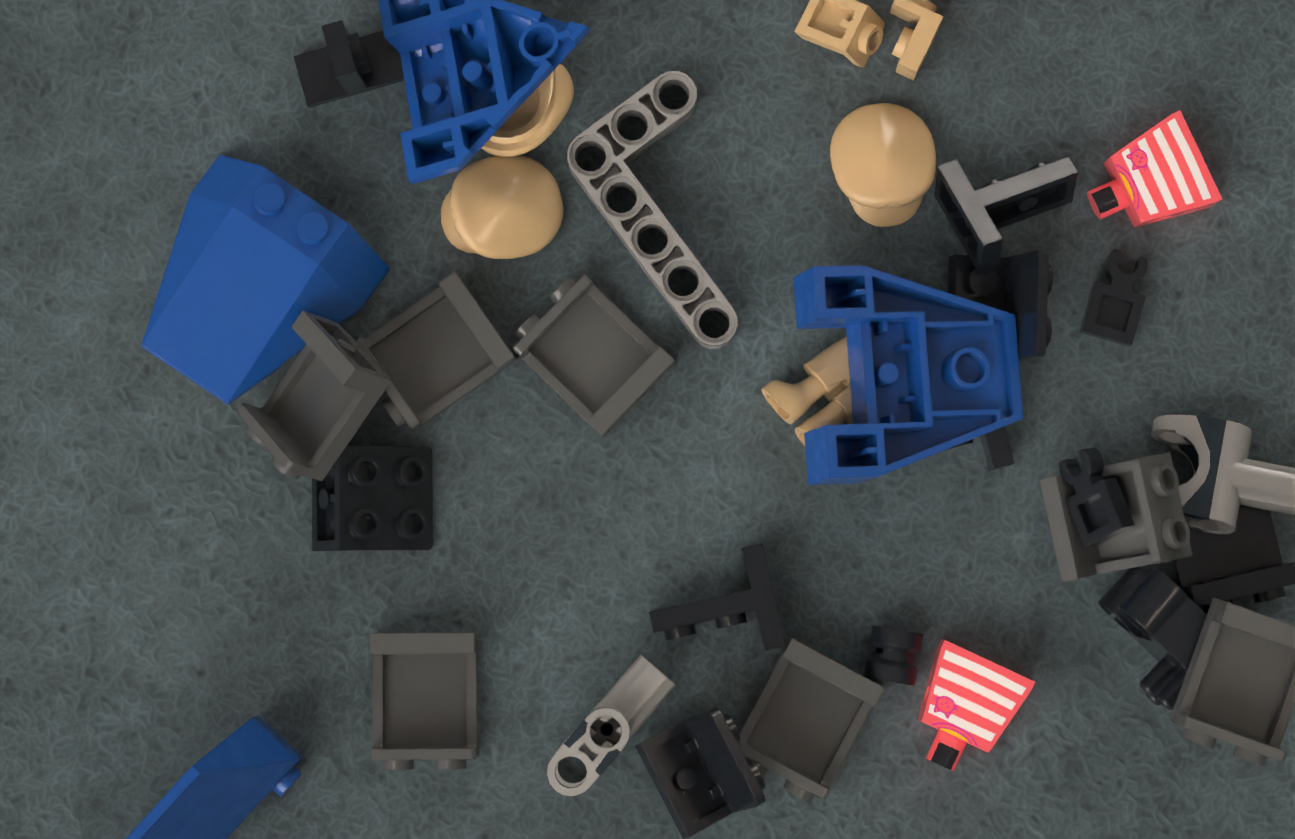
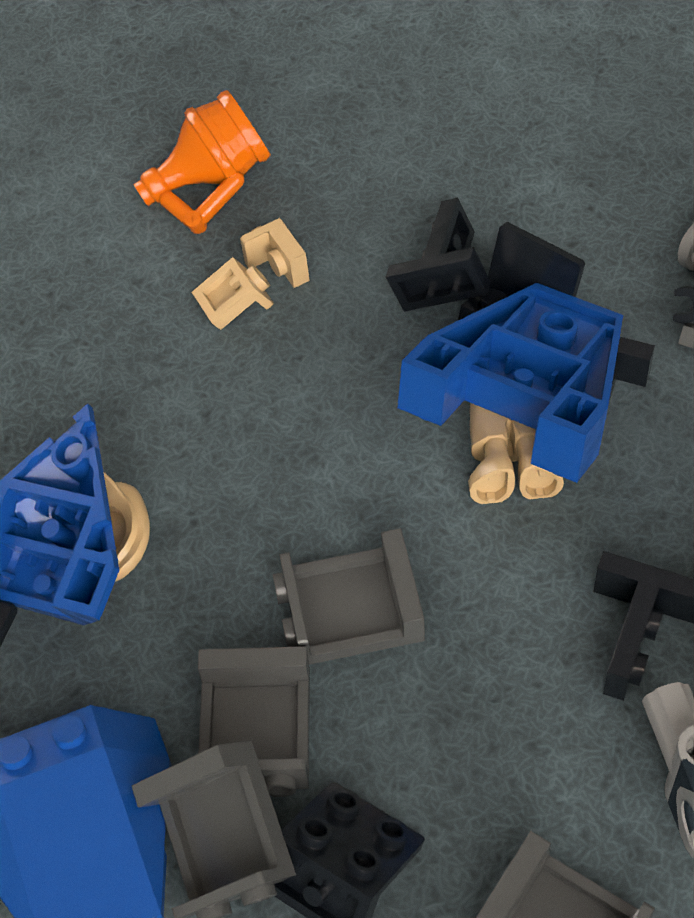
camera: 55 degrees left, 30 degrees down
(502, 208) = (175, 600): tan piece -> none
(645, 213) = (269, 489): light grey beam -> none
(883, 162) = (357, 322): tan piece -> none
(1113, 307) = (573, 236): black plate -> none
(1156, 176) = (496, 167): coral torso -> none

